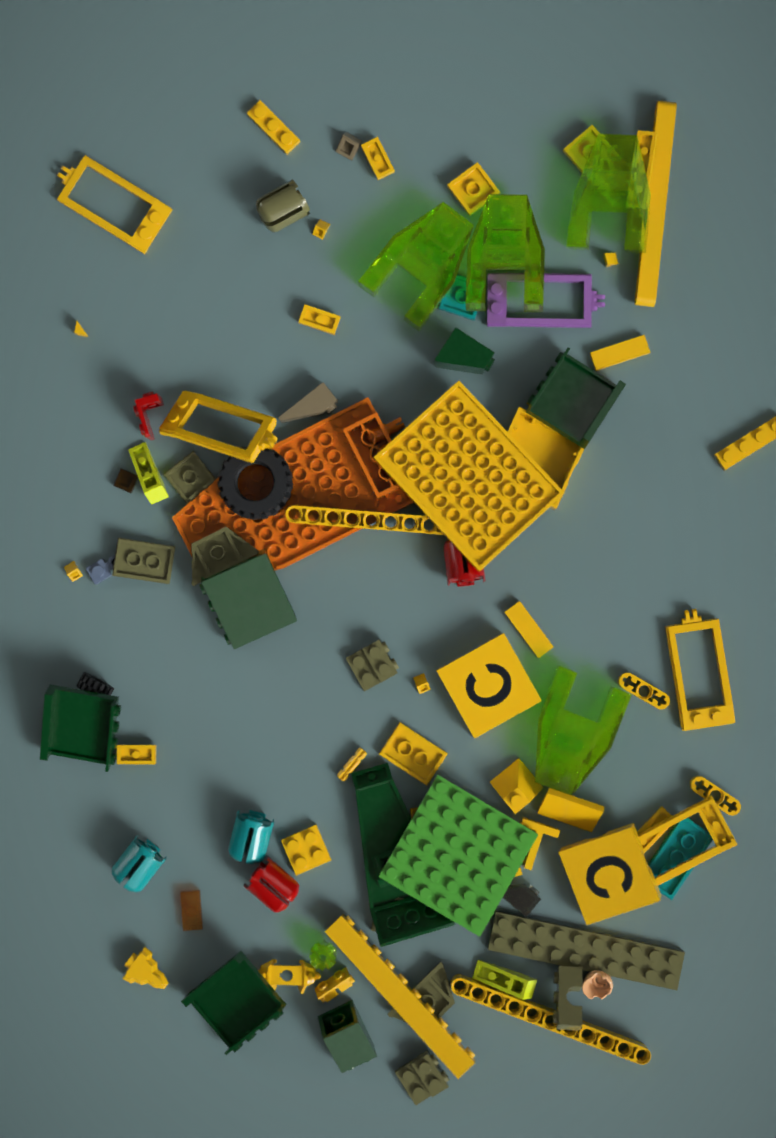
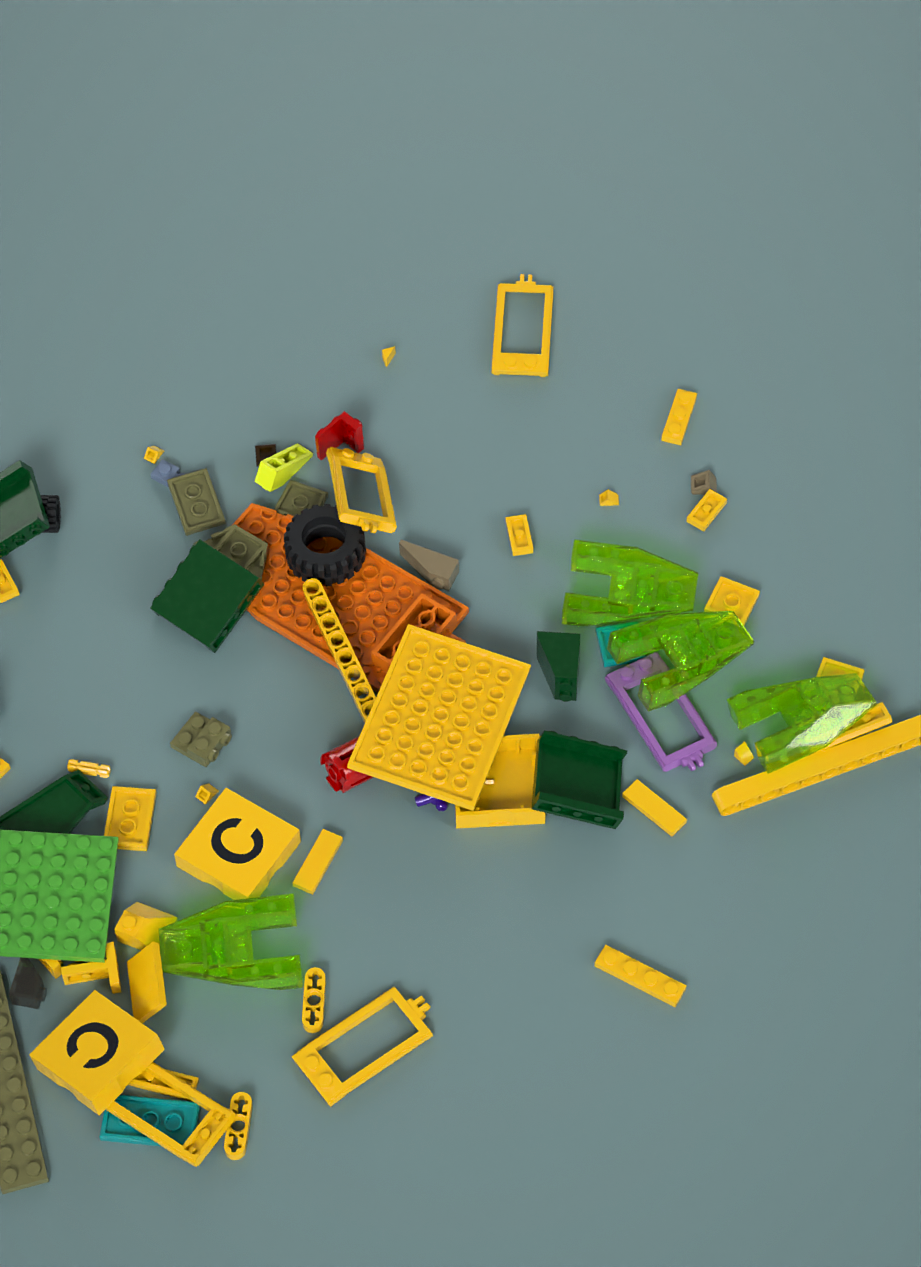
camera: 60 degrees right, 30 degrees down
(282, 207) = (606, 451): olive cylinder -> none

